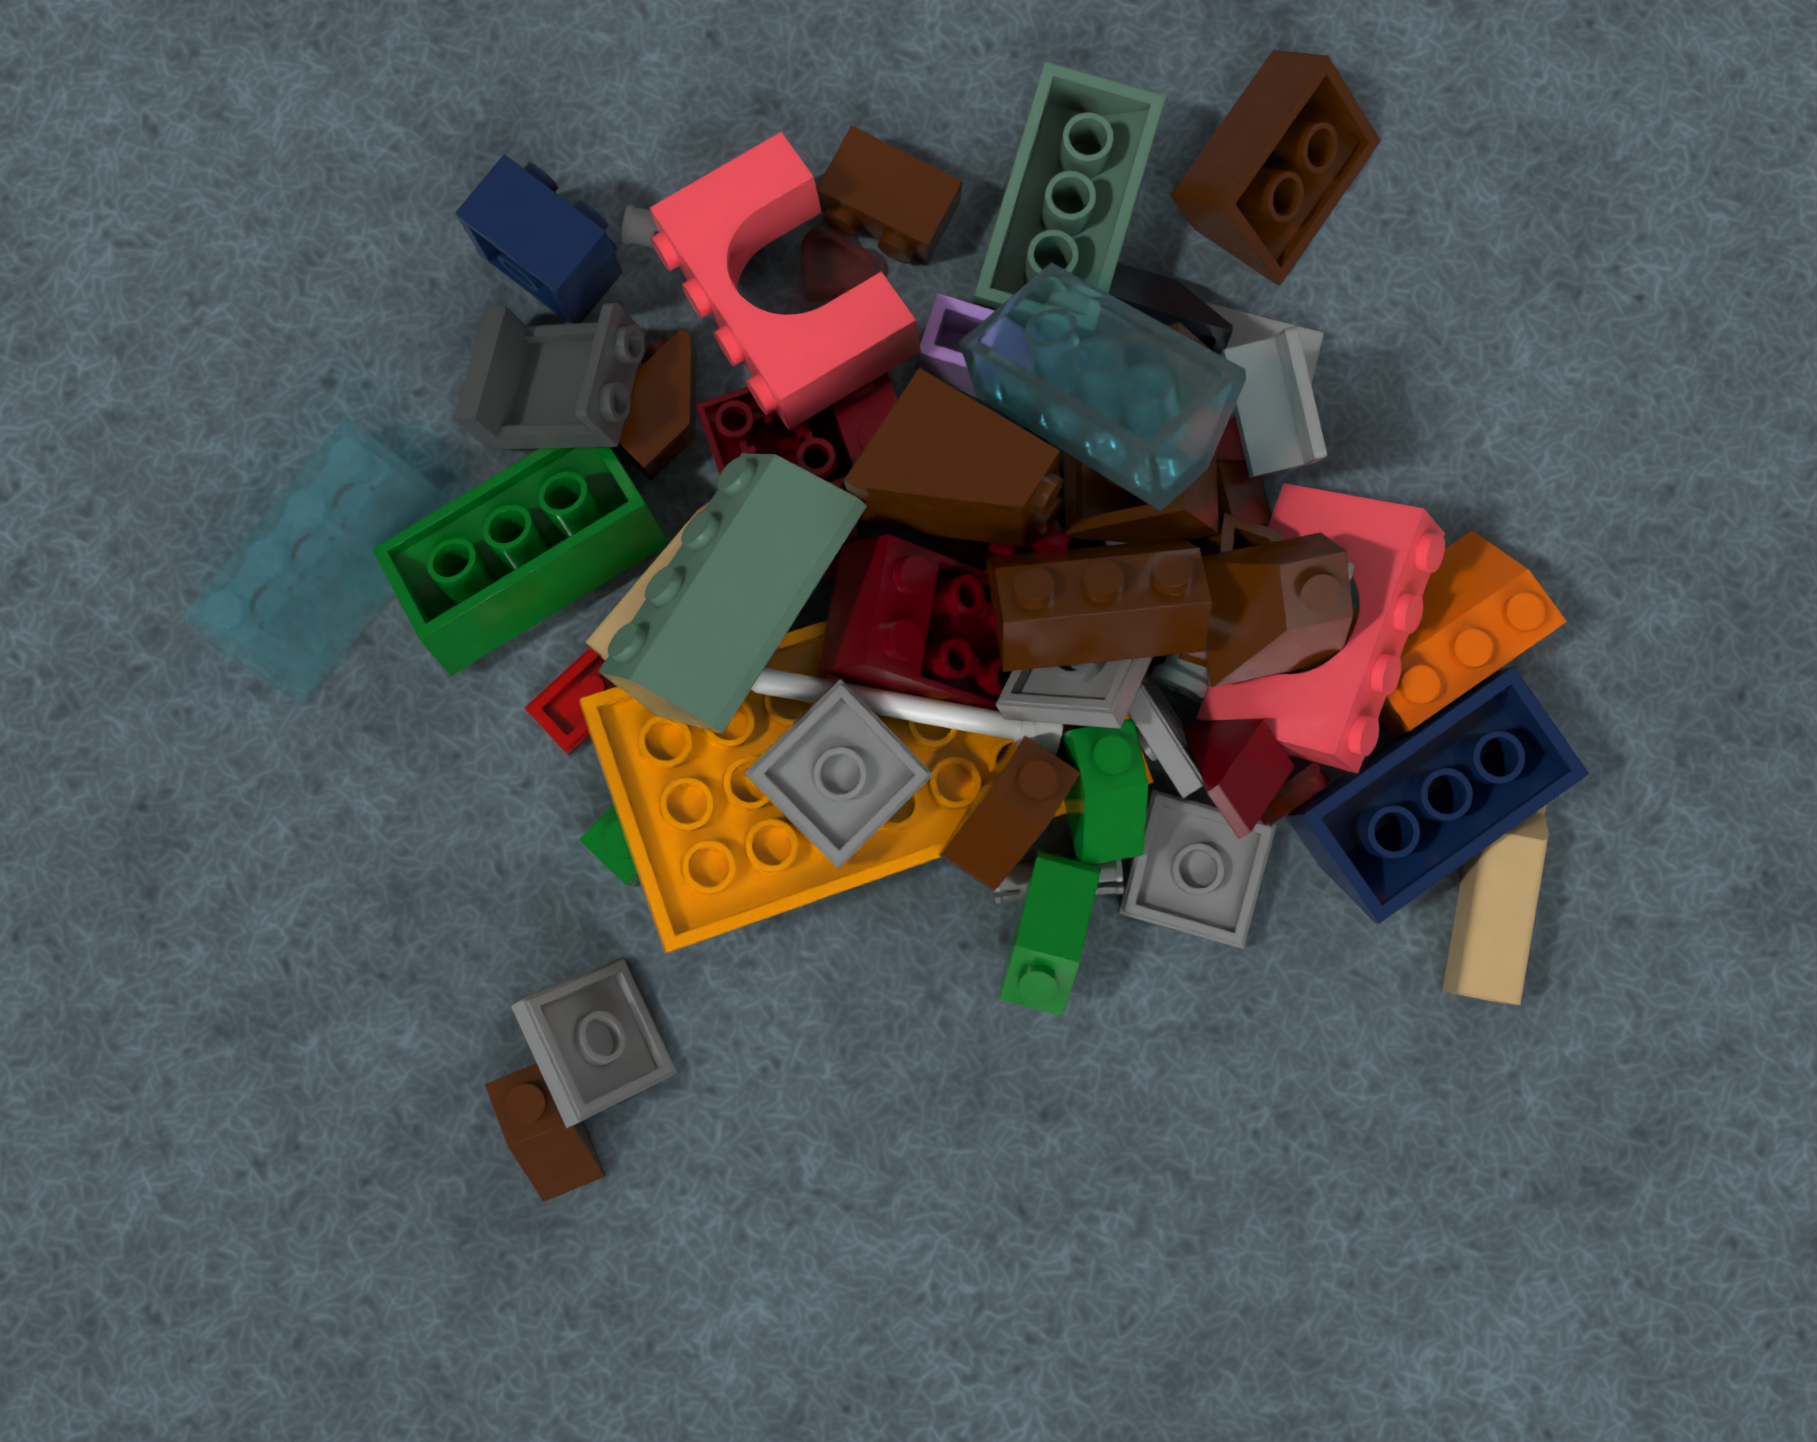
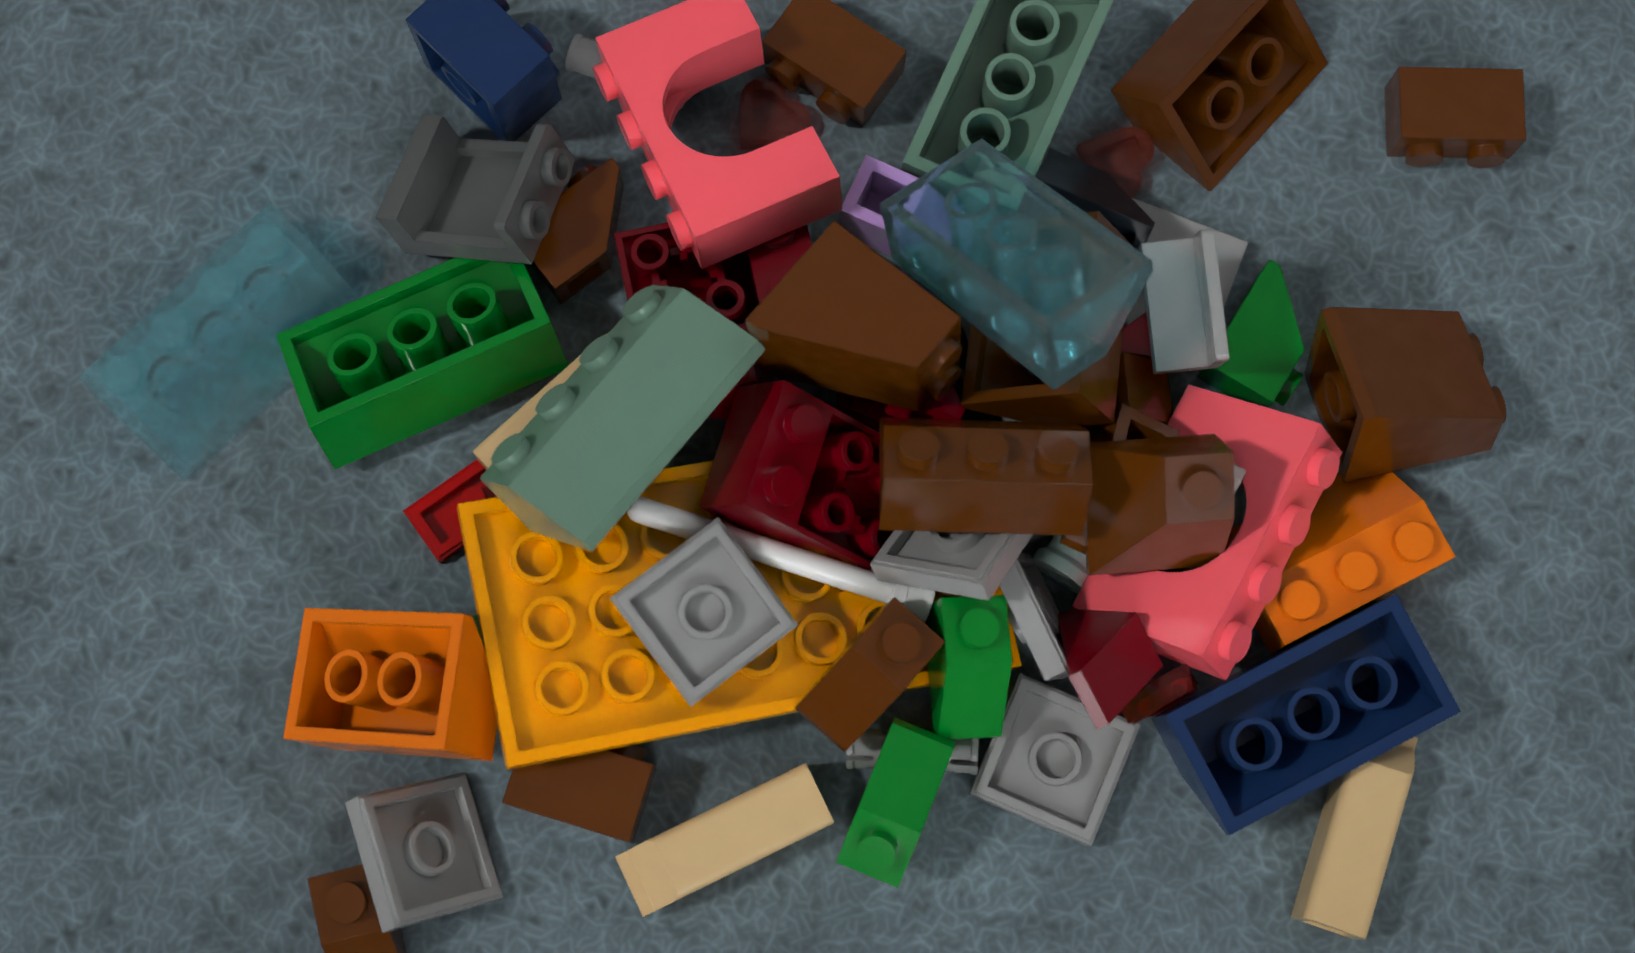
camera: 10 degrees right, 5 degrees down
(540, 883) = (392, 684): none -> orange slope
(749, 962) = (589, 791): none -> reddish brown brick
(886, 990) = (724, 839): none -> tan piece
(1187, 259) = (1120, 154): none -> clear red tile
(1353, 433) = (1261, 345): none -> green slope
(1493, 460) = (1400, 388): none -> reddish brown slope
(1513, 178) = (1454, 115): none -> reddish brown brick

